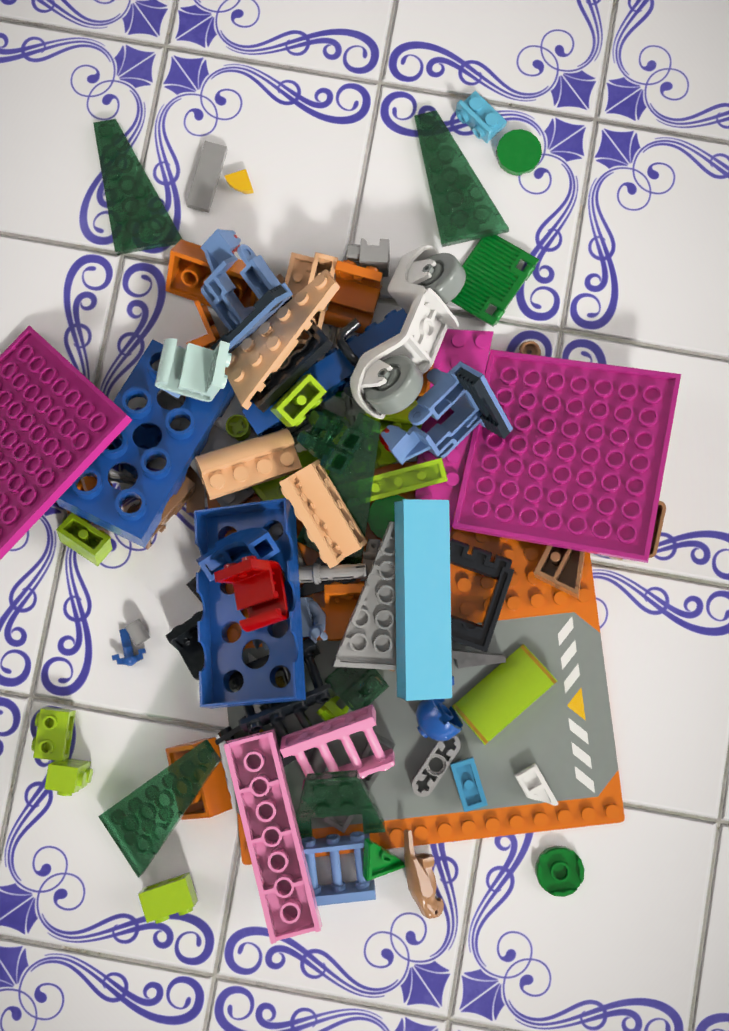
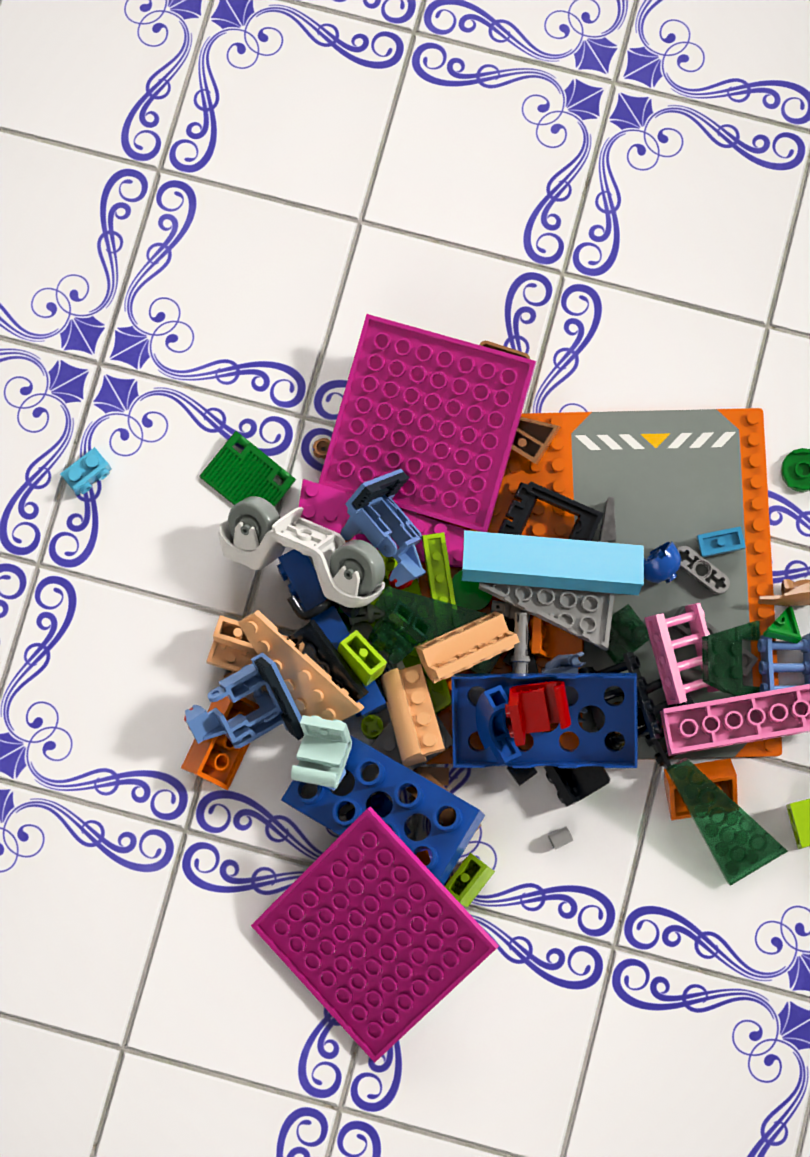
camera: 85 degrees left, 5 degrees down
(53, 733) = (651, 923): lime brick -> none
(68, 776) = (691, 906): lime brick -> none
(129, 657) = (584, 848): blue piece -> none
(133, 205) = (137, 815): clear green wing -> none
(206, 176) = (116, 740): light grey tile -> none
(213, 335) = (281, 741): orange bracket -> none
(240, 181) = (125, 708): yellow tile -> none
(331, 710) = (647, 659): lime tile -> none
(356, 295) = (250, 597): orange piece -> none
(371, 255) = (222, 586): light grey hips -> none
(458, 197) = (165, 500): clear green wing -> none
(504, 694) = (642, 502): lime slope -> none
(518, 152) = (125, 439): green tile -> none
(534, 785) = (726, 483): white tile -> none

